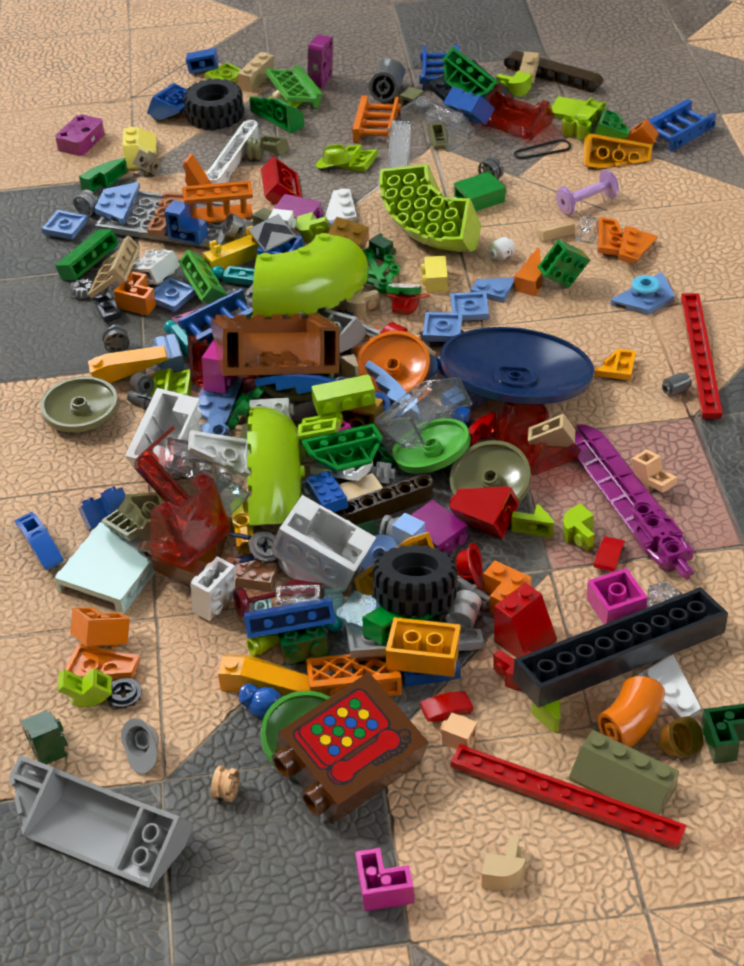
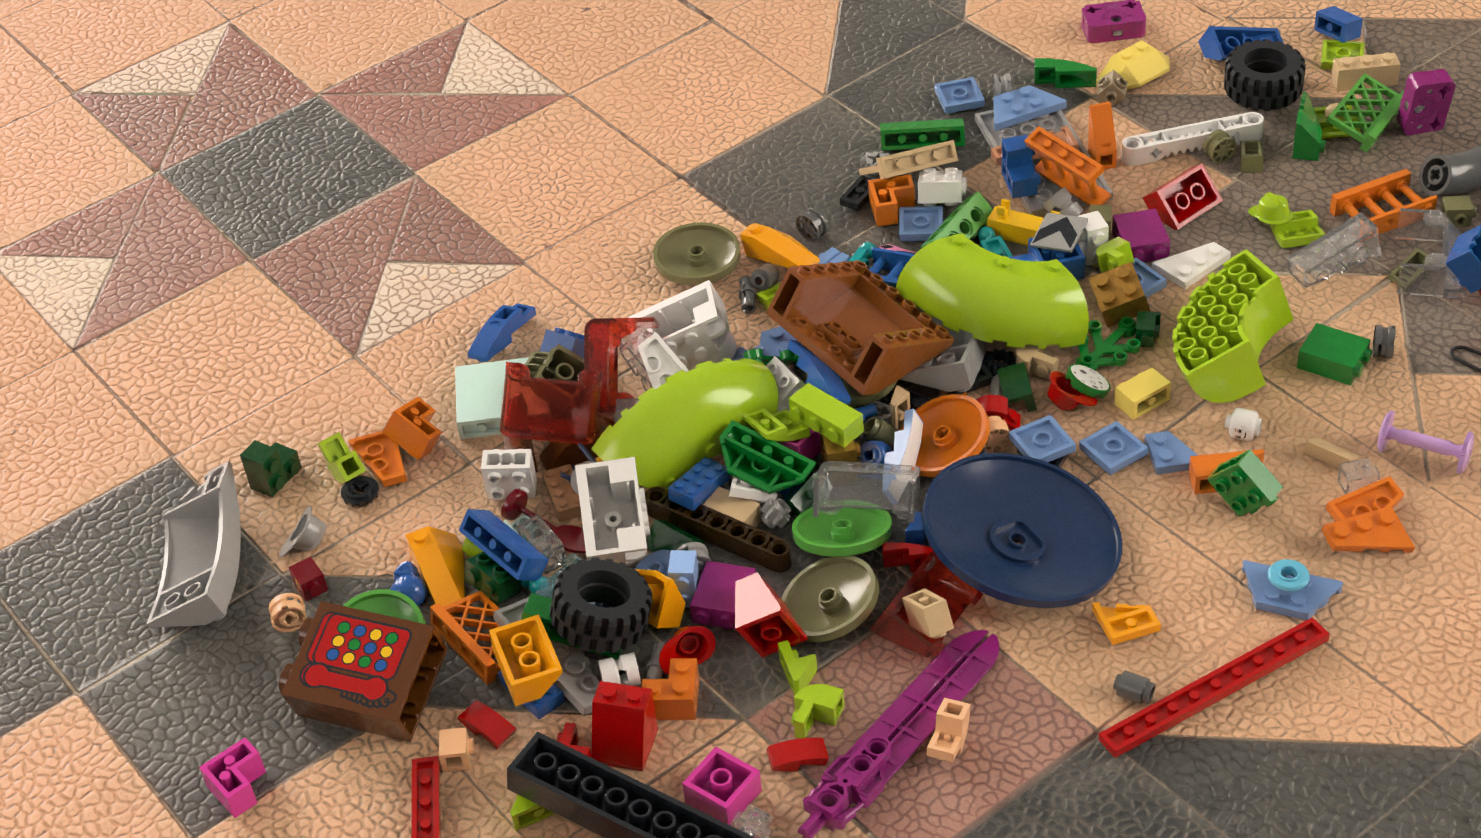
camera: 60 degrees right, 0 degrees up
(196, 759) = (308, 578): none -> dark red brick
(376, 316) = (1017, 385): none -> dark green panel

